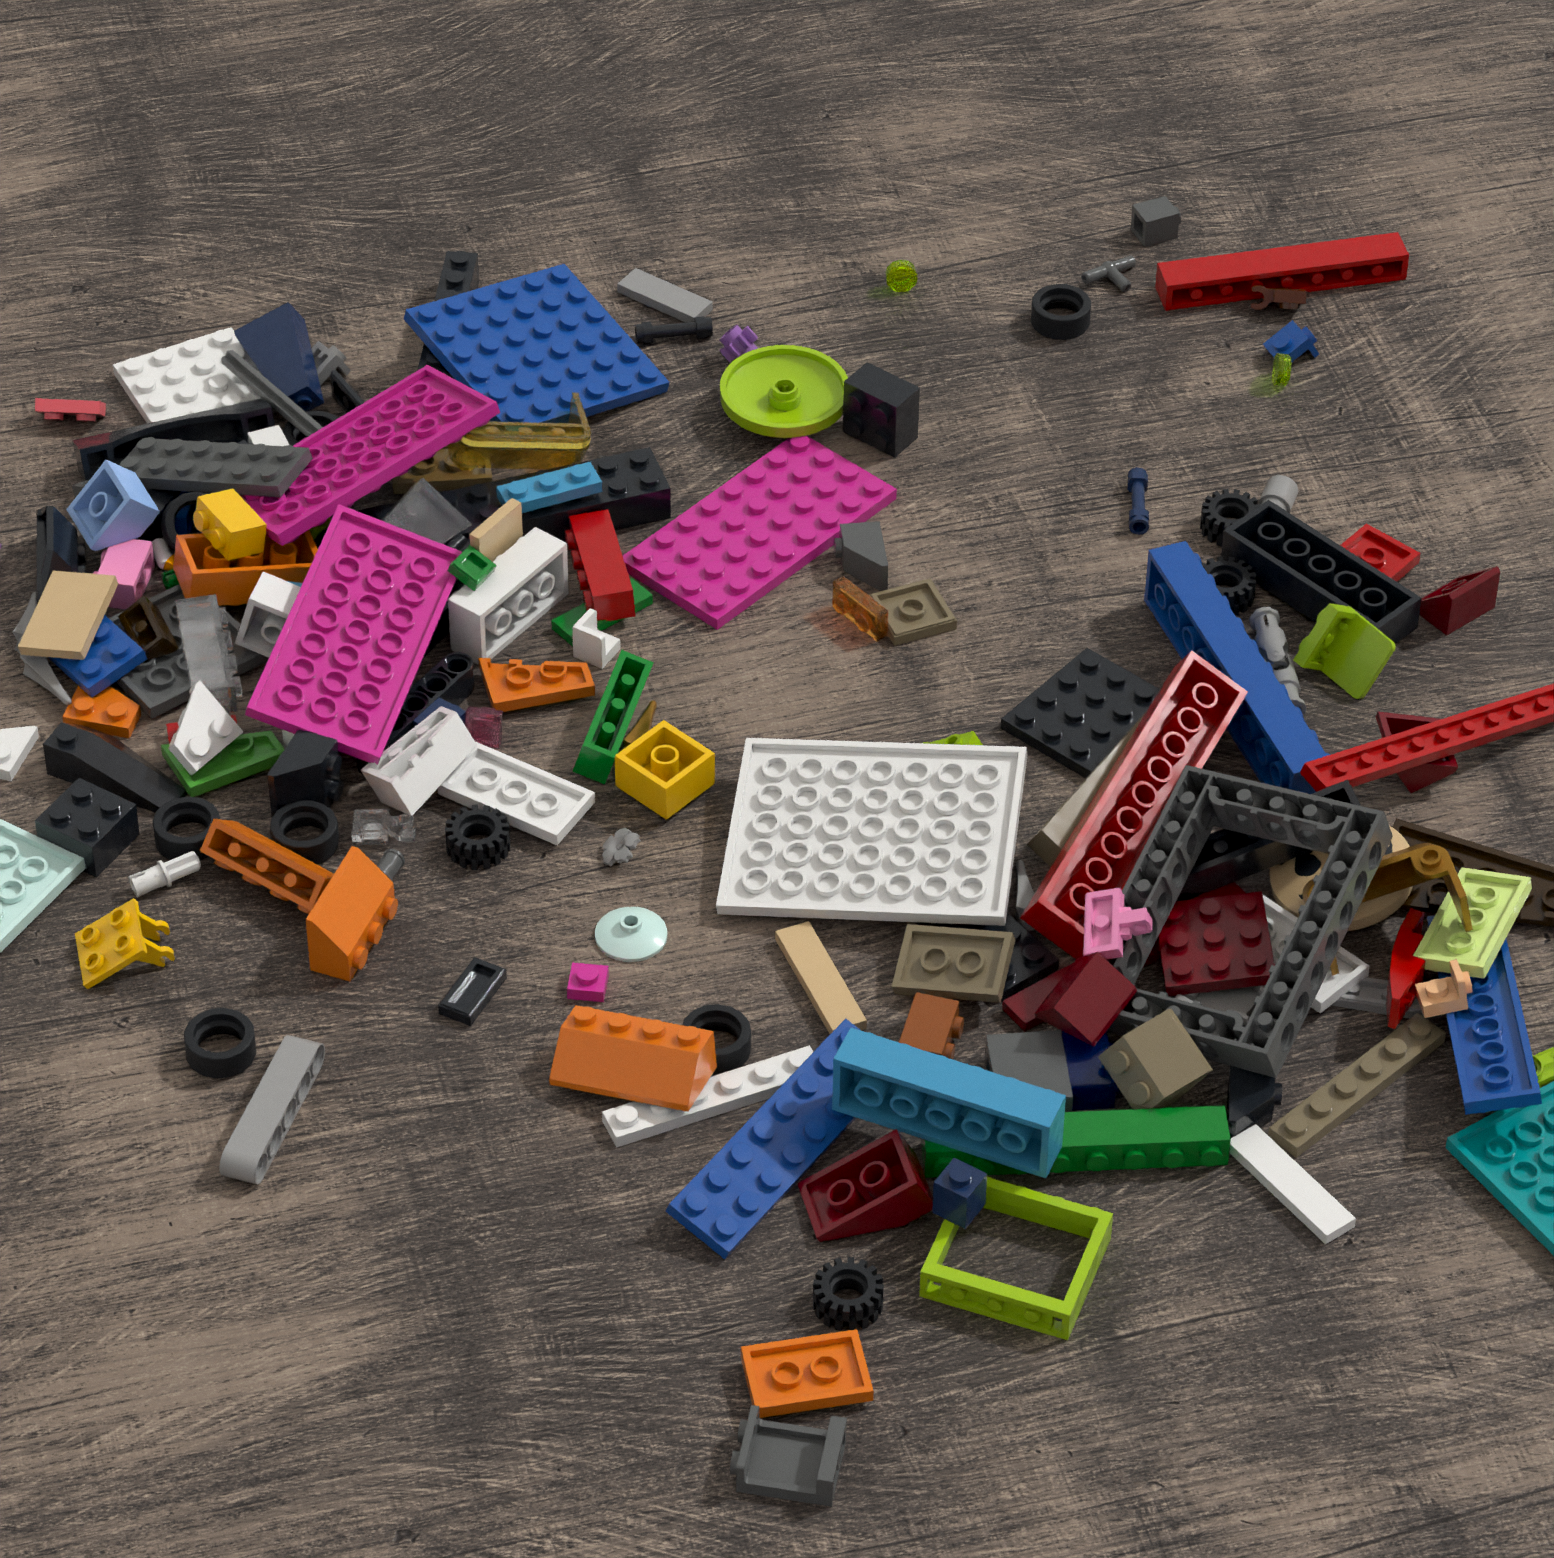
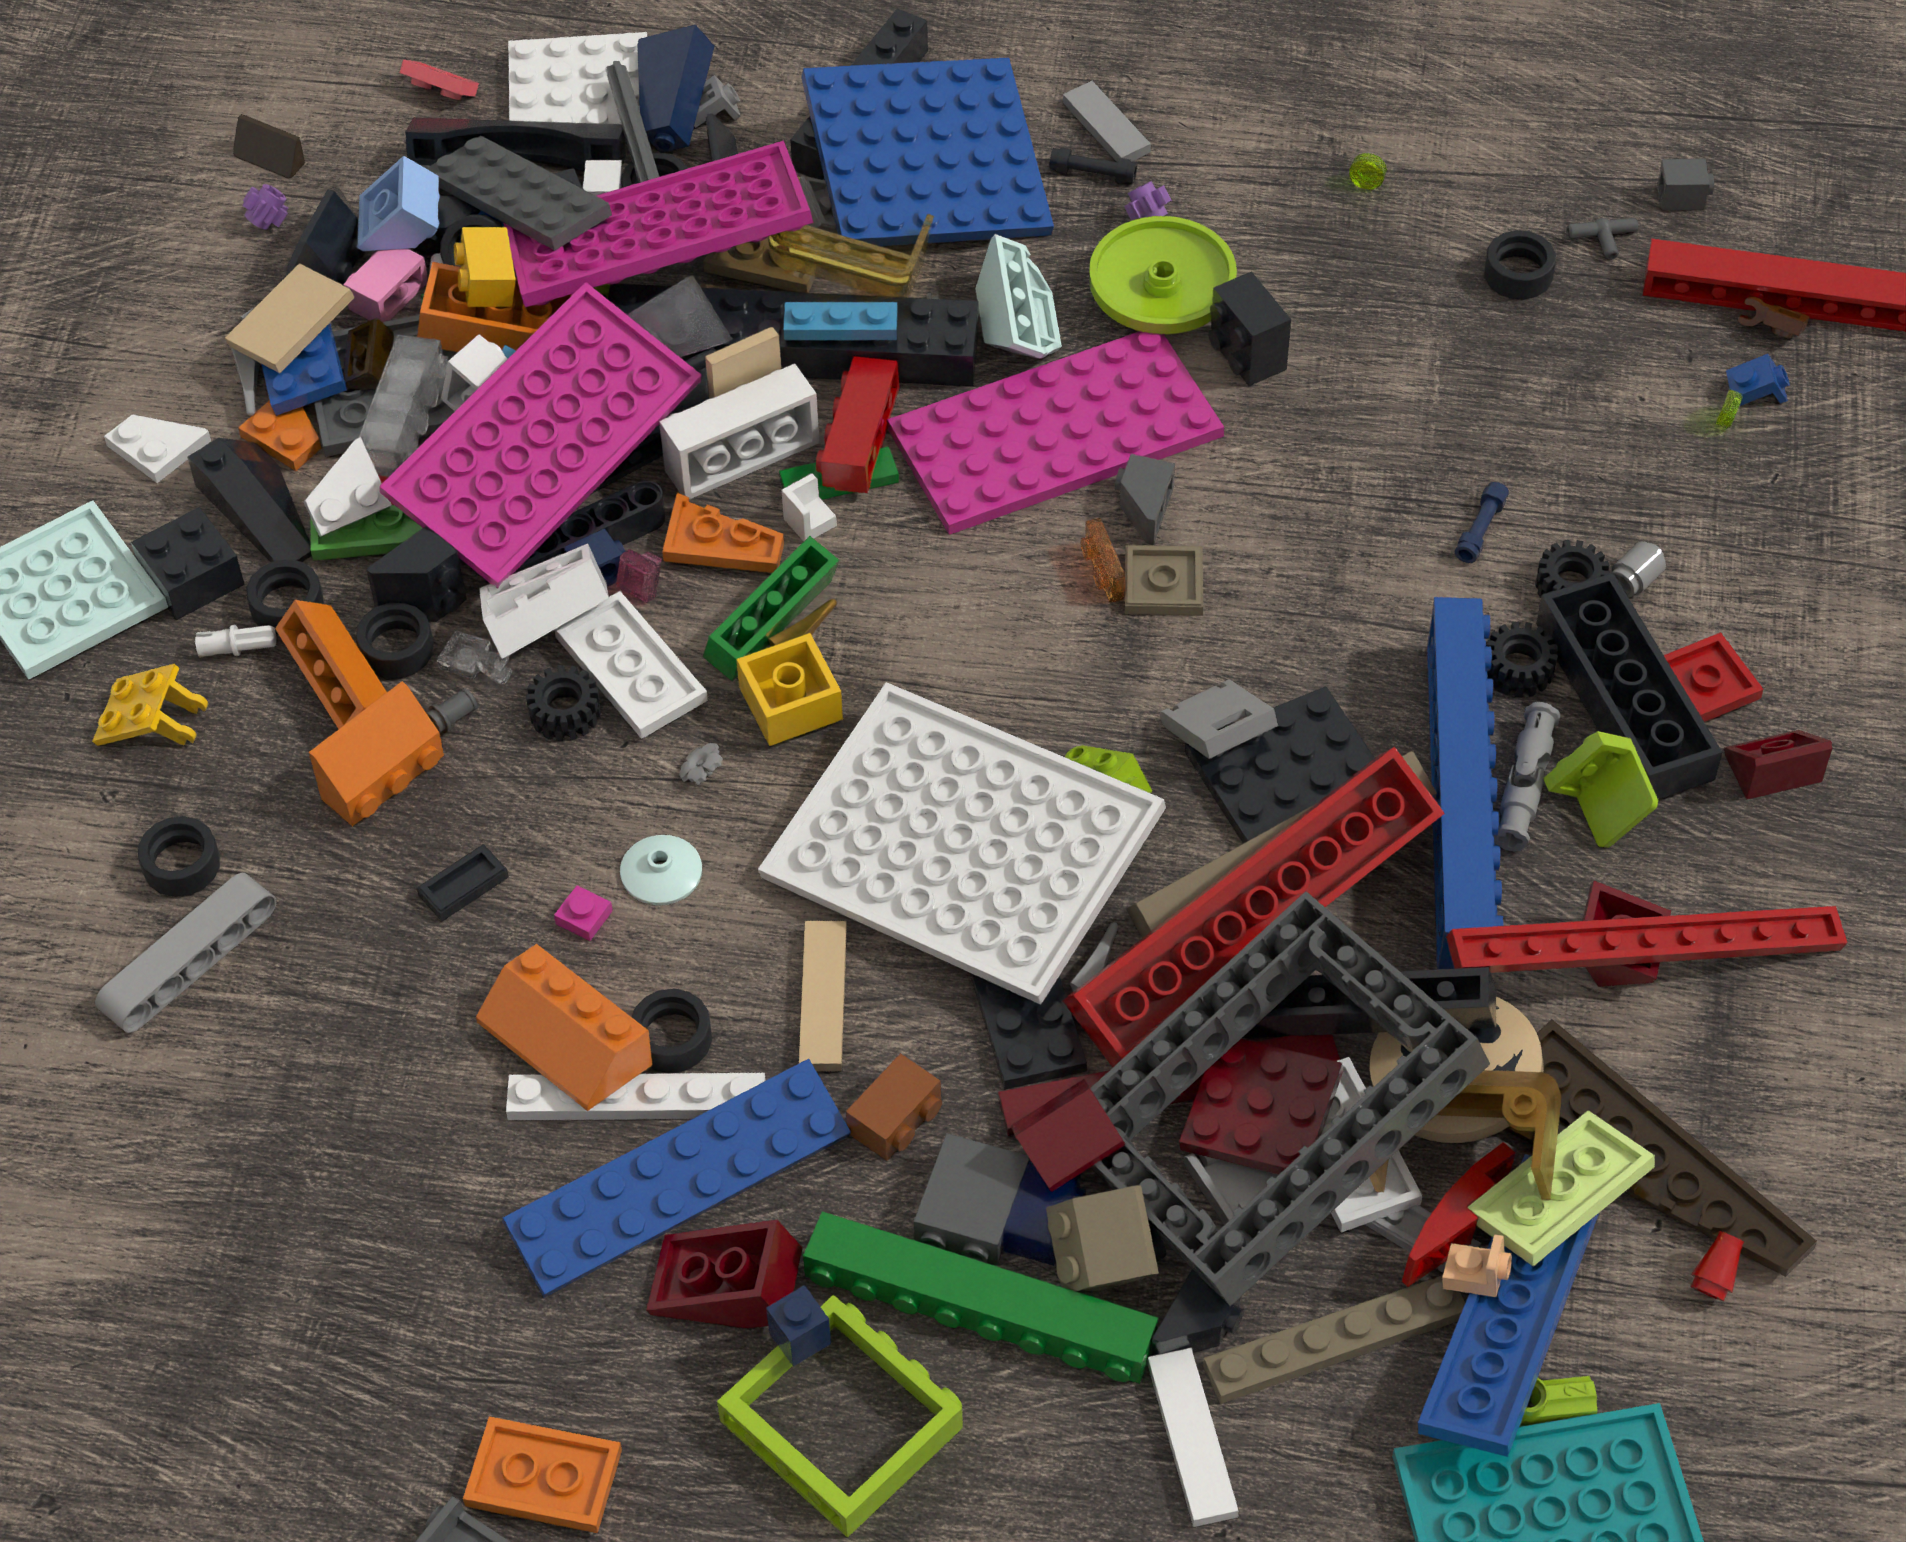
camera: 25 degrees right, 10 degrees up
(471, 568) = (697, 393): green tile -> none
(674, 443) = (1016, 302): none -> light aqua wedge
(845, 1311) = (638, 1417): black tyre -> none
(948, 1102) = (841, 1211): dark azure brick -> none
(953, 963) = (964, 1030): dark tan plate -> none
(1010, 691) = (1202, 714): none -> light grey container
(1110, 923) = (1131, 1054): bright pink hinge -> none

